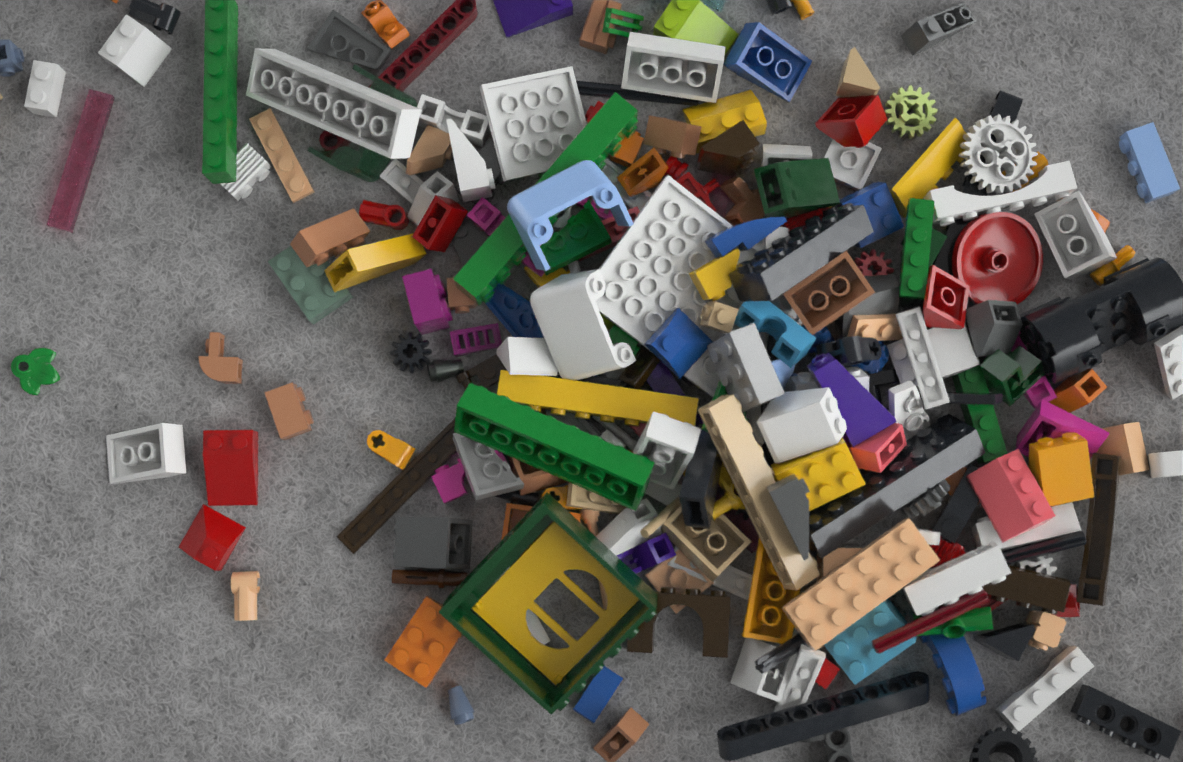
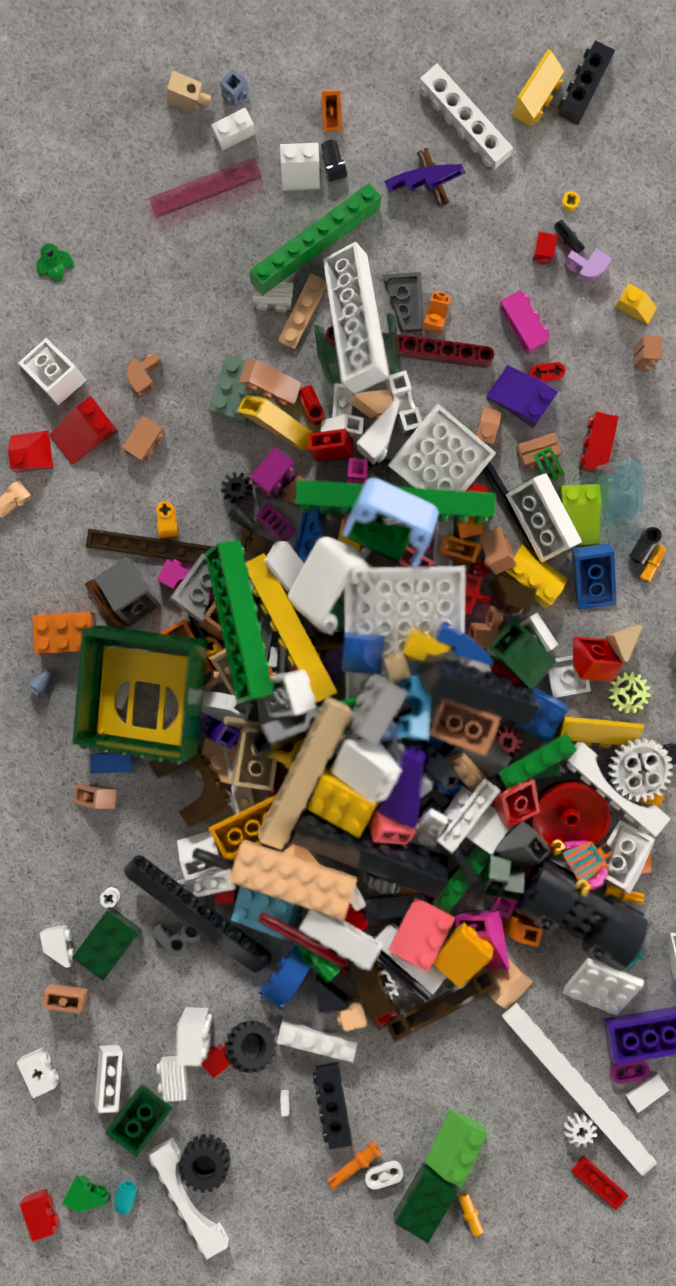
camera: 55 degrees right, 5 degrees up
(538, 54) = (488, 425): none -> nougat slope
(793, 507) = (309, 800): dark grey slope -> none
(1053, 276) = (585, 862): none -> torso

